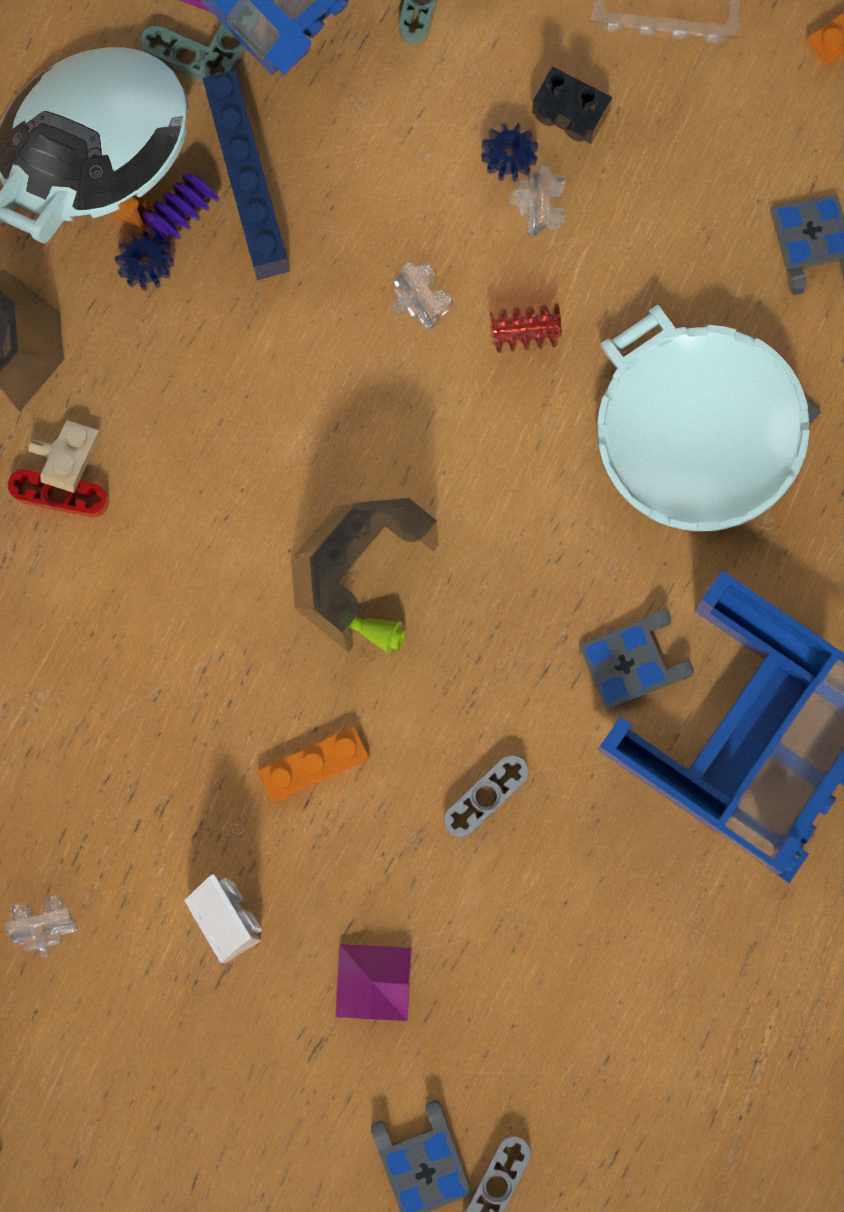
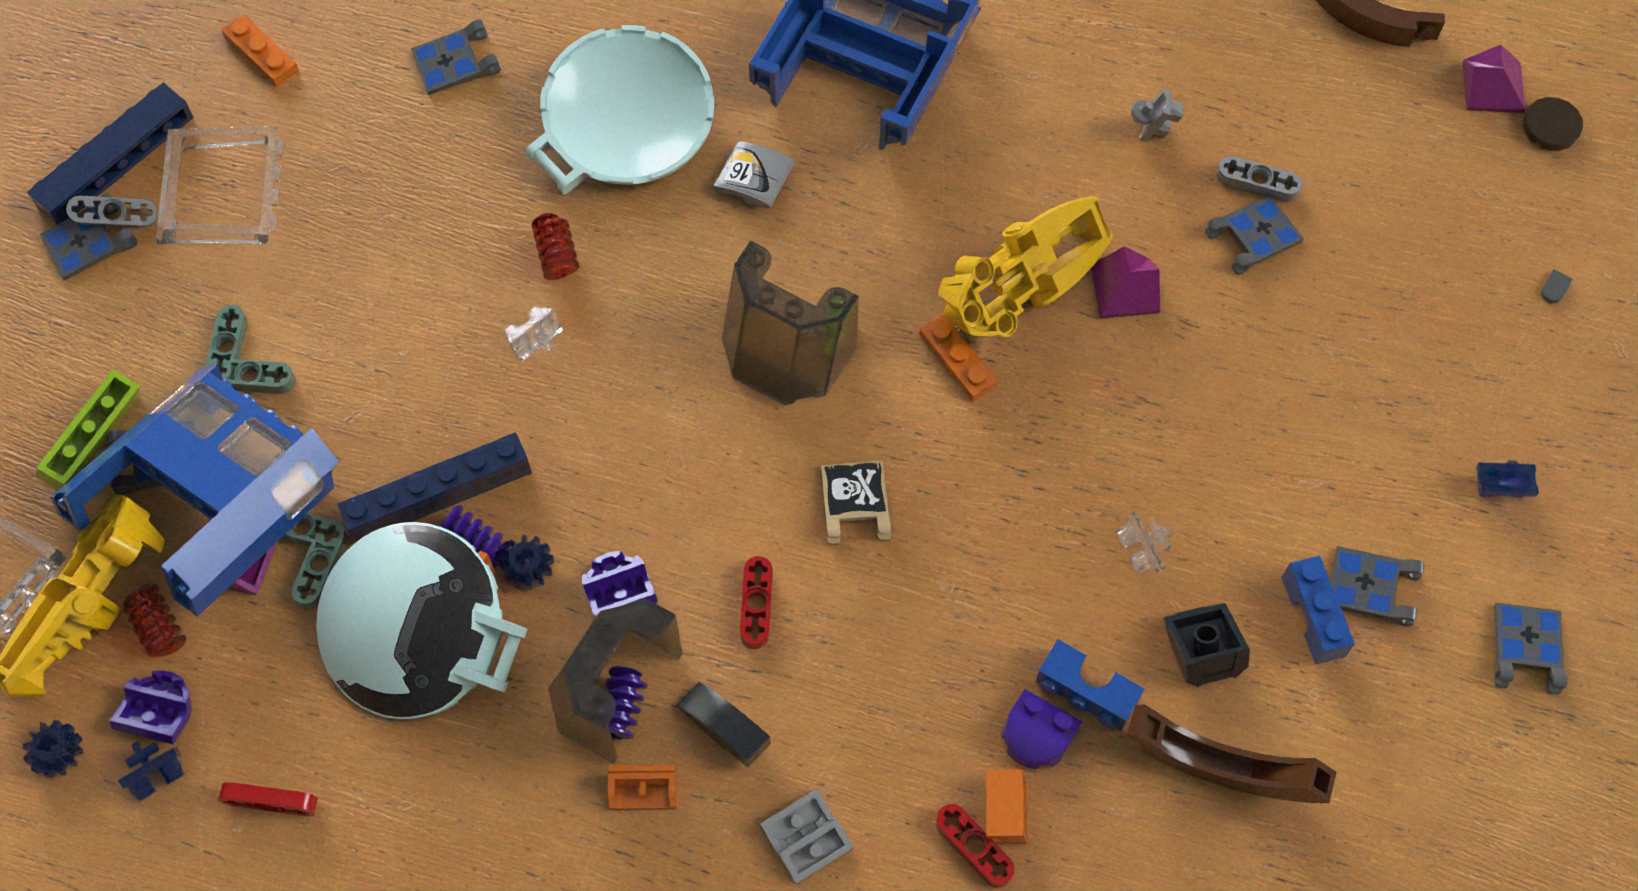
camera: 105 degrees left, 15 degrees down
(66, 455) = (721, 596): tan plate -> none
(100, 350) = (617, 582): none -> dark purple slope
(164, 618) = (855, 494): none -> flag
(222, 919) = (1106, 387): white slope -> none
(400, 862) = (1025, 268): none -> yellow piece
(497, 157) = (395, 282): clear blue gear -> none
(499, 772) = (951, 216): light grey beam -> none
(535, 197) = (438, 254): clear hips -> none
(571, 106) = (348, 240): black brick -> none
(595, 568) = (754, 174): none -> light grey slope
(596, 1070) = (1156, 115): none -> light grey hips
(628, 662) = (826, 144): dark grey flag -> none

